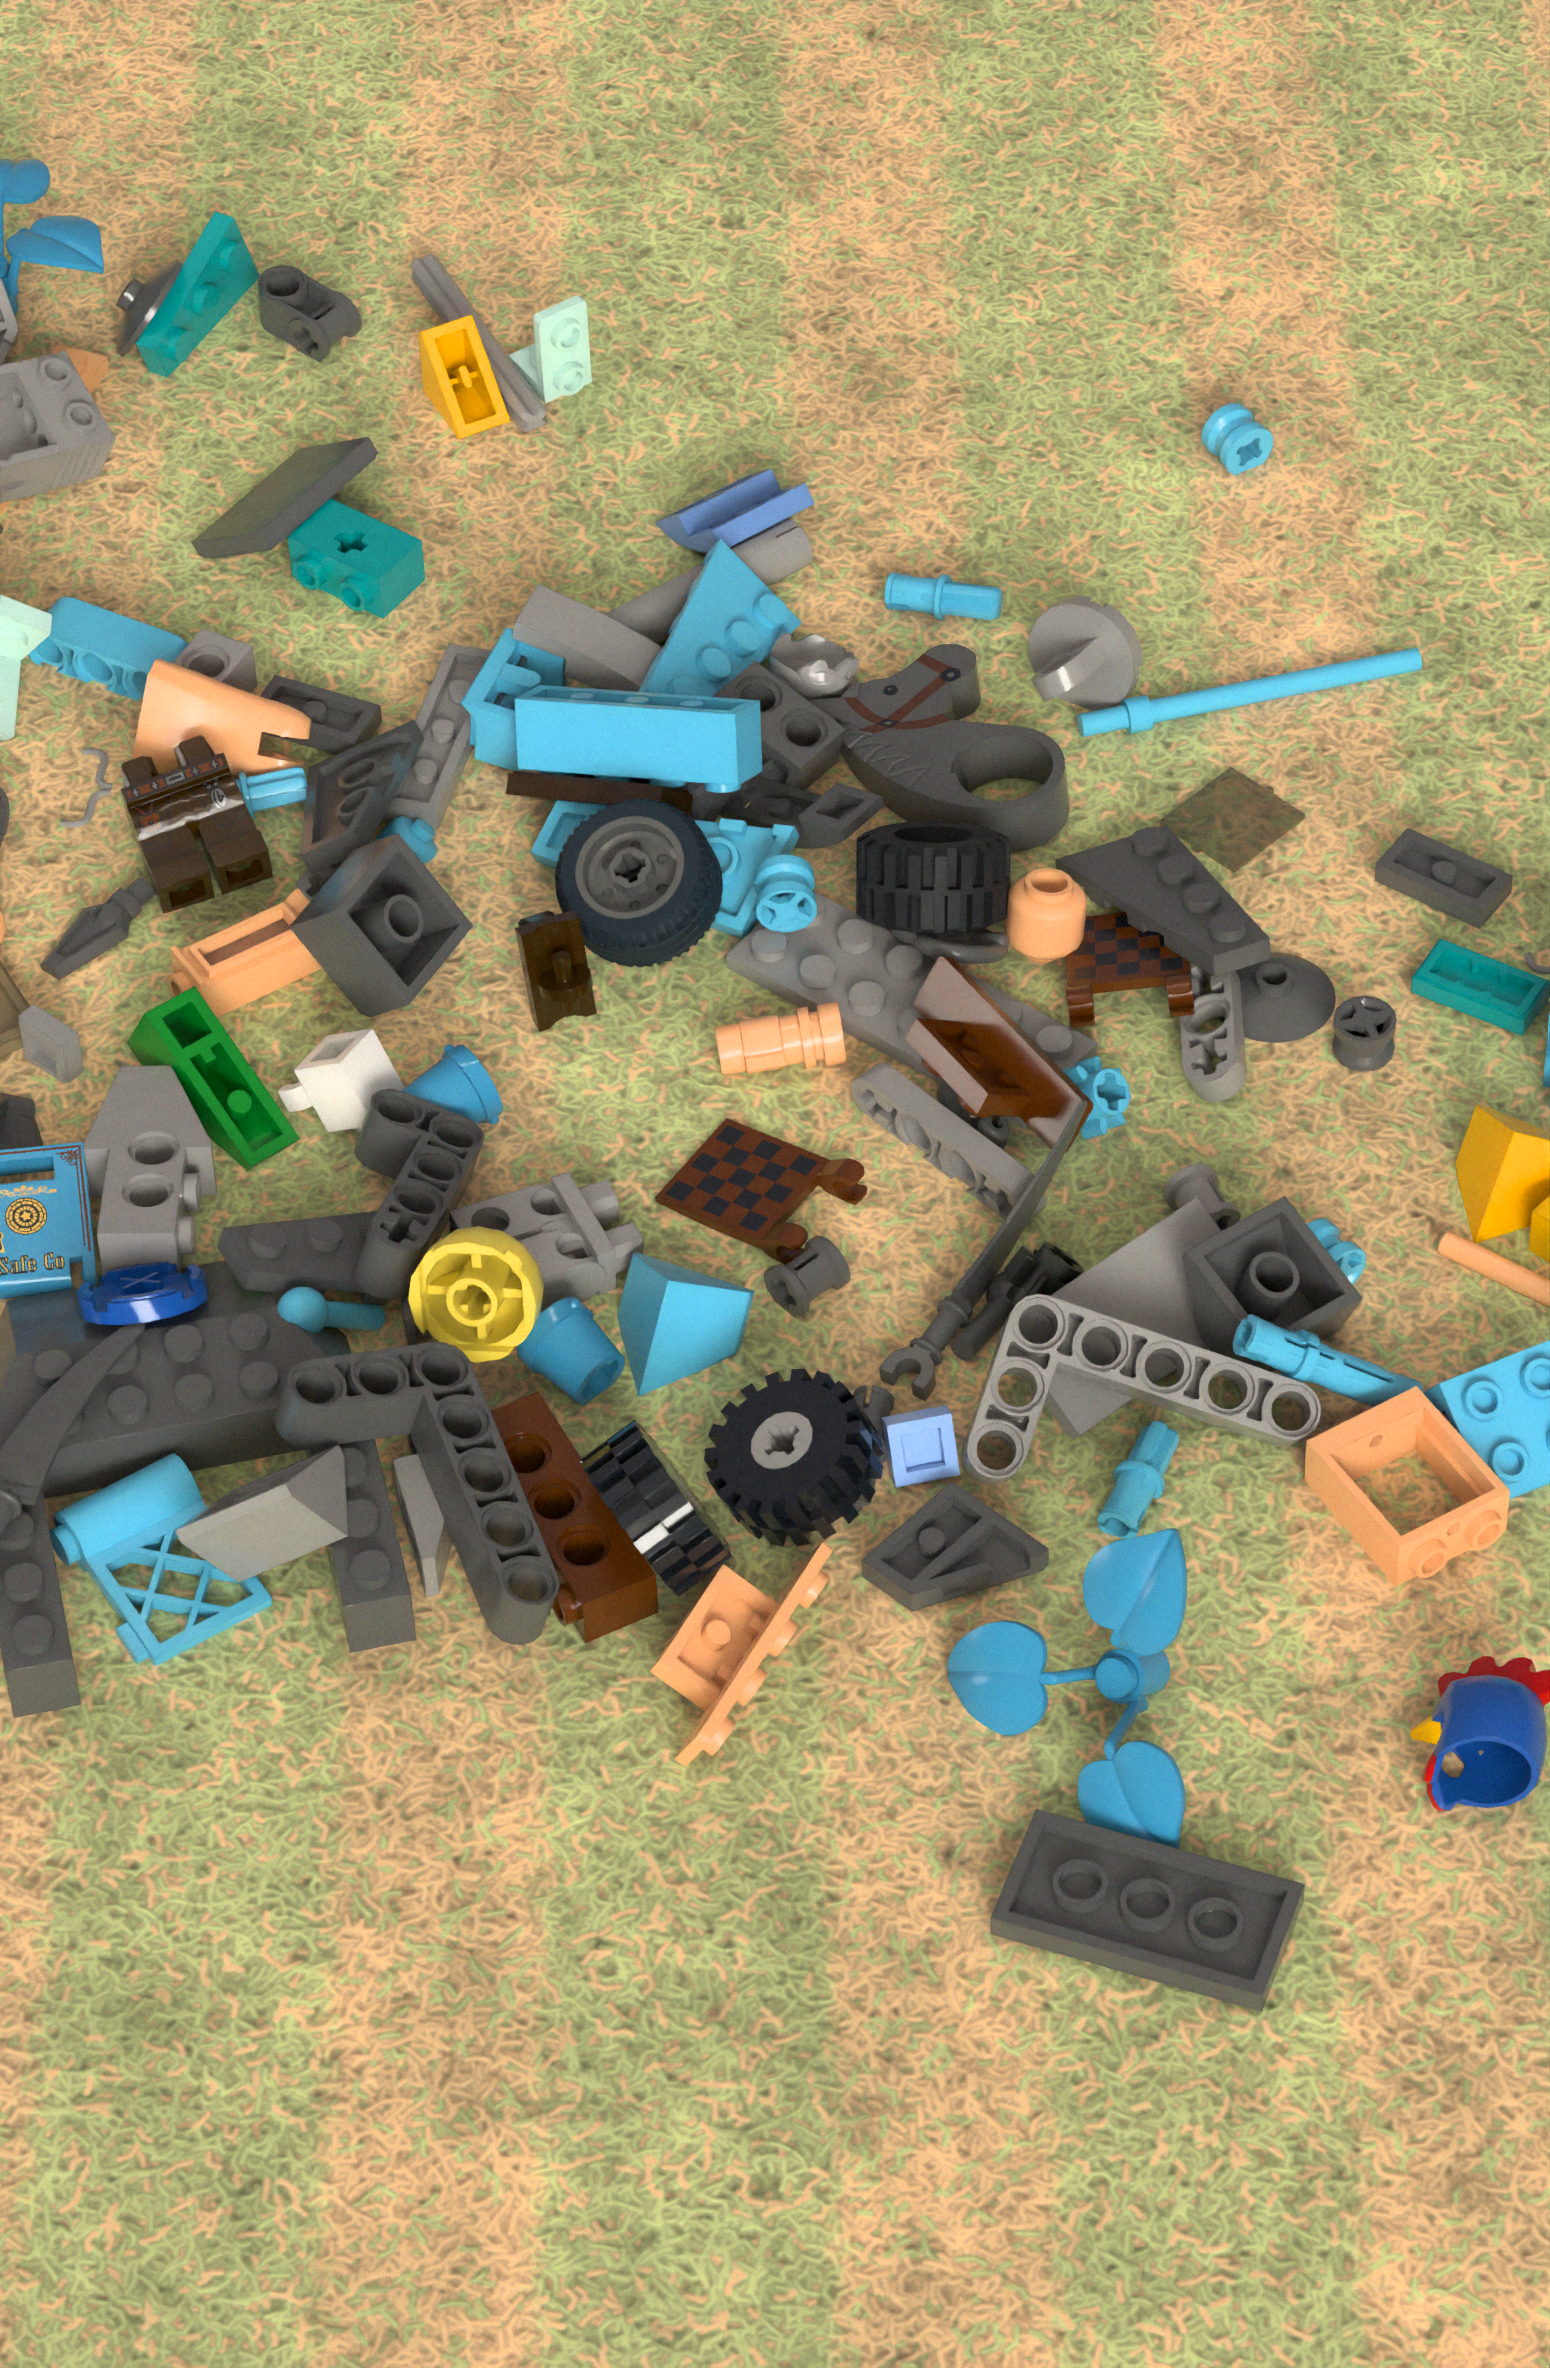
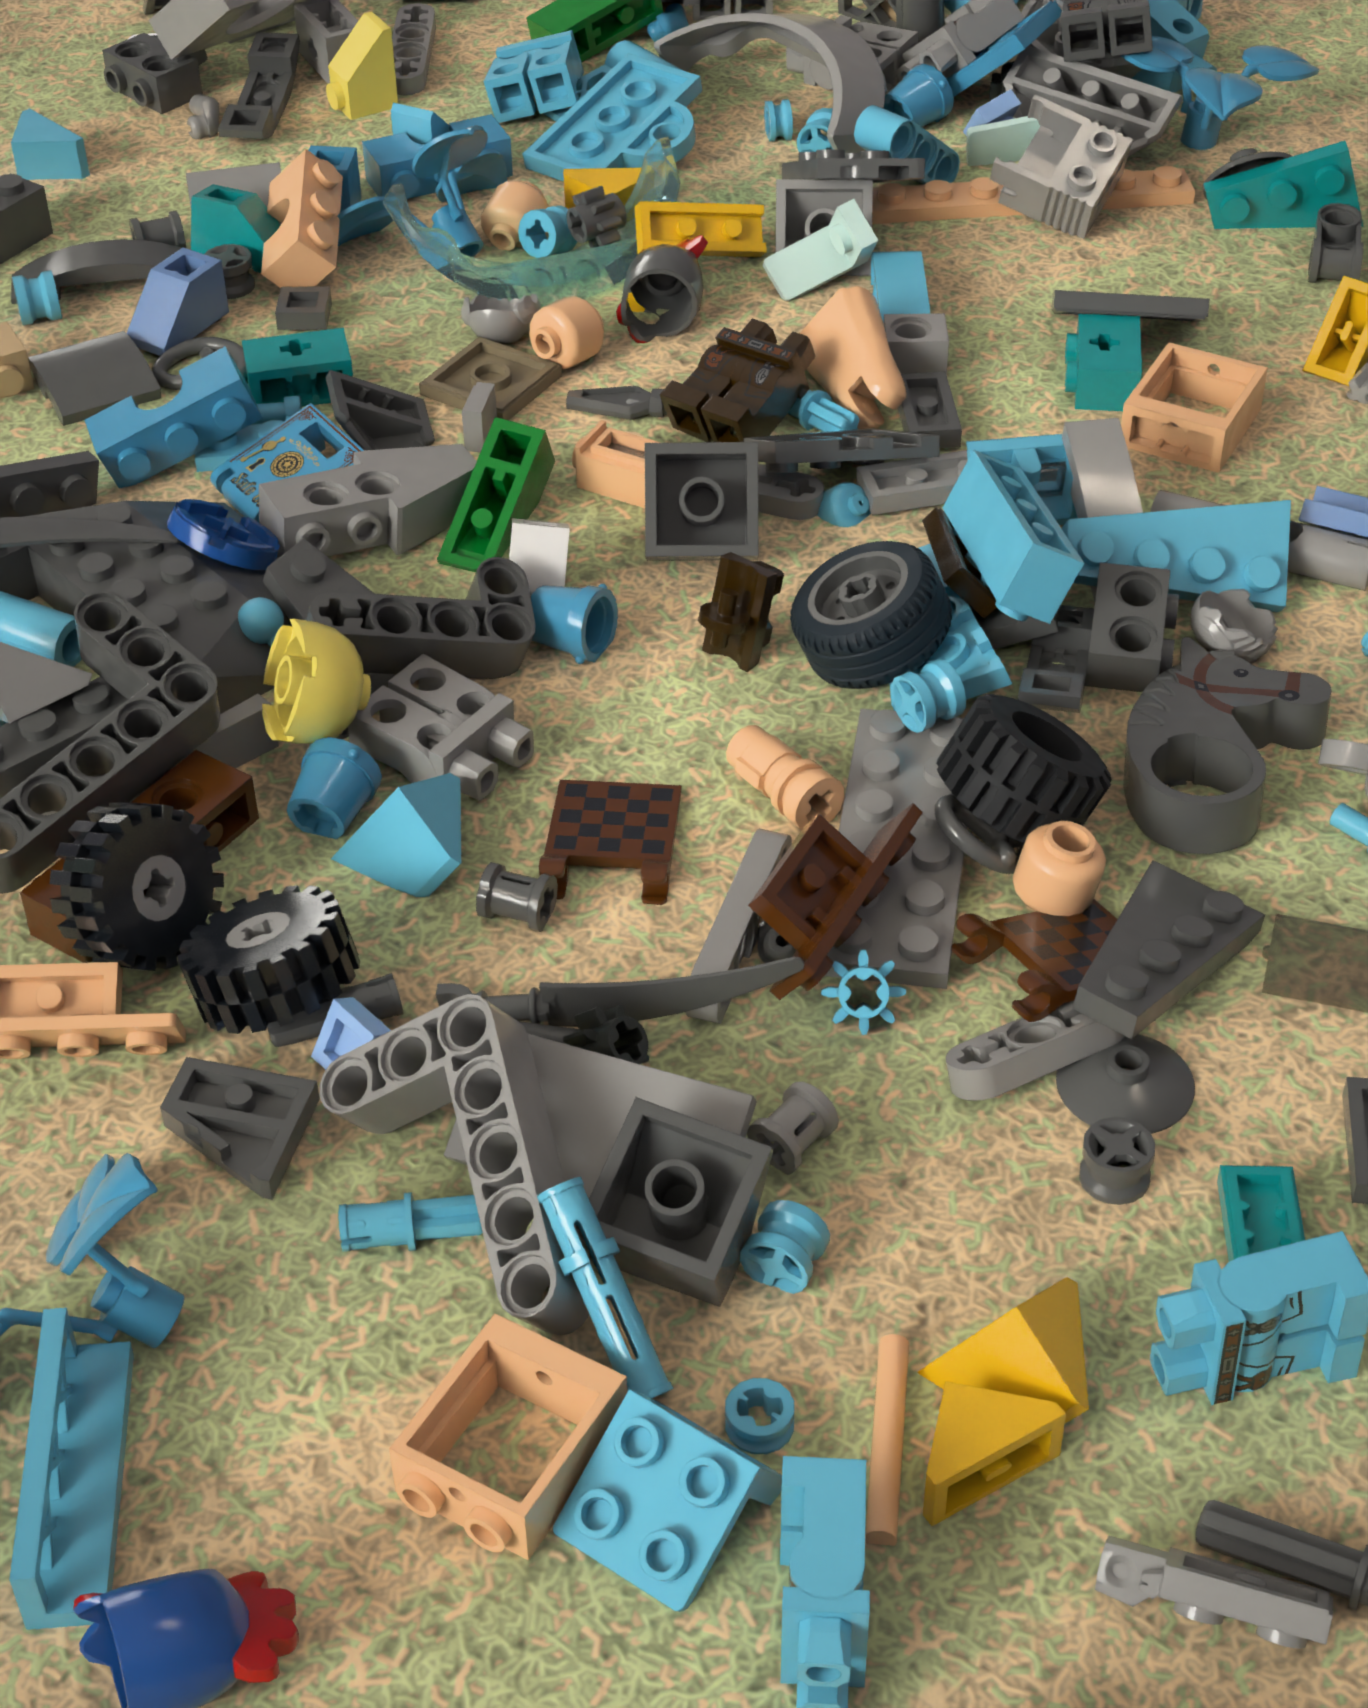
camera: 60 degrees right, 5 degrees down
(496, 571) = (1185, 433): none -> light nougat window
(1275, 1770) = (70, 1474): none -> medium azure fence
(1453, 1333) = (742, 1427): none -> medium azure bush

